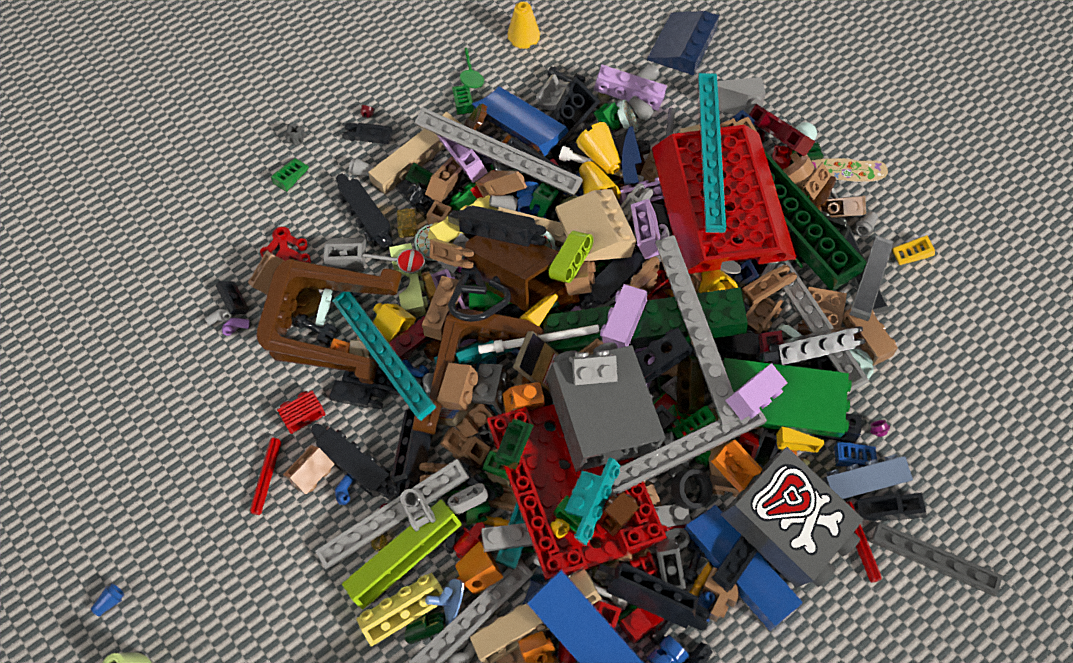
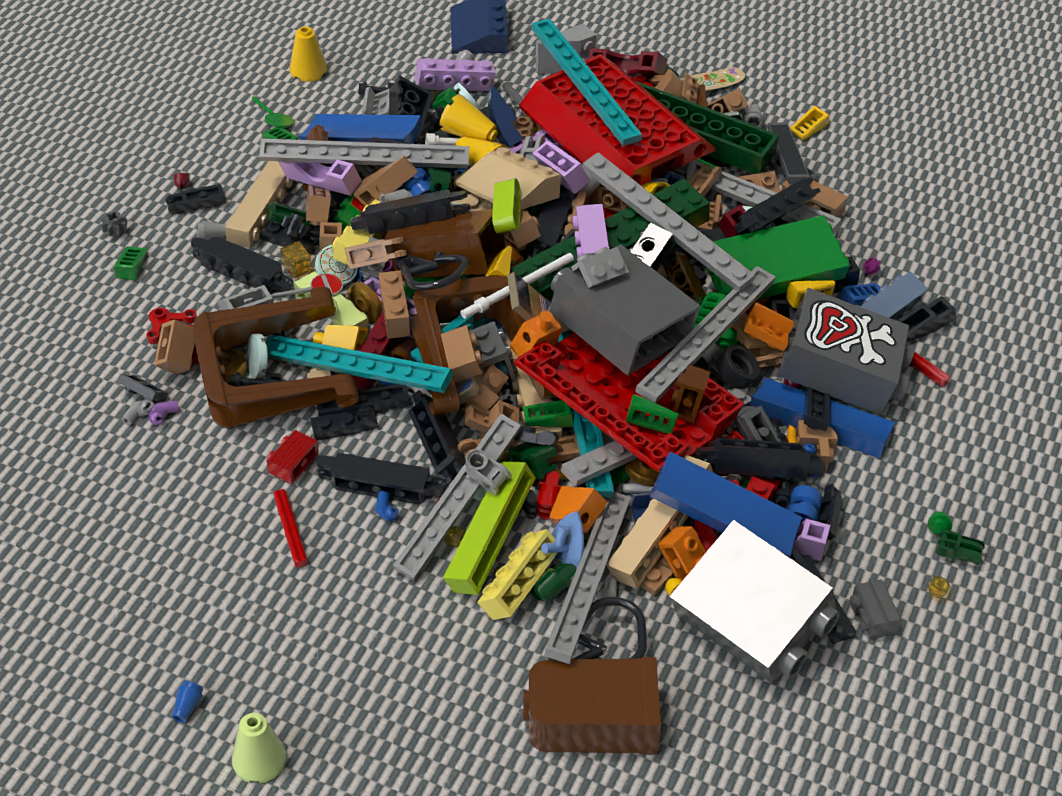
camera: 30 degrees left, 15 degrees down
(309, 469) = (338, 499): brick -> none
(467, 498) = (531, 446): light grey beam -> none
(513, 443) = (558, 366): dark green hinge -> none
(560, 527) = (642, 425): yellow hinge -> none
(589, 498) = (658, 382): teal bracket -> none
(641, 108) = (476, 89): light grey cone -> none
(757, 392) = (755, 251): lavender brick -> none
(937, 559) = (985, 346): dark grey tile -> none

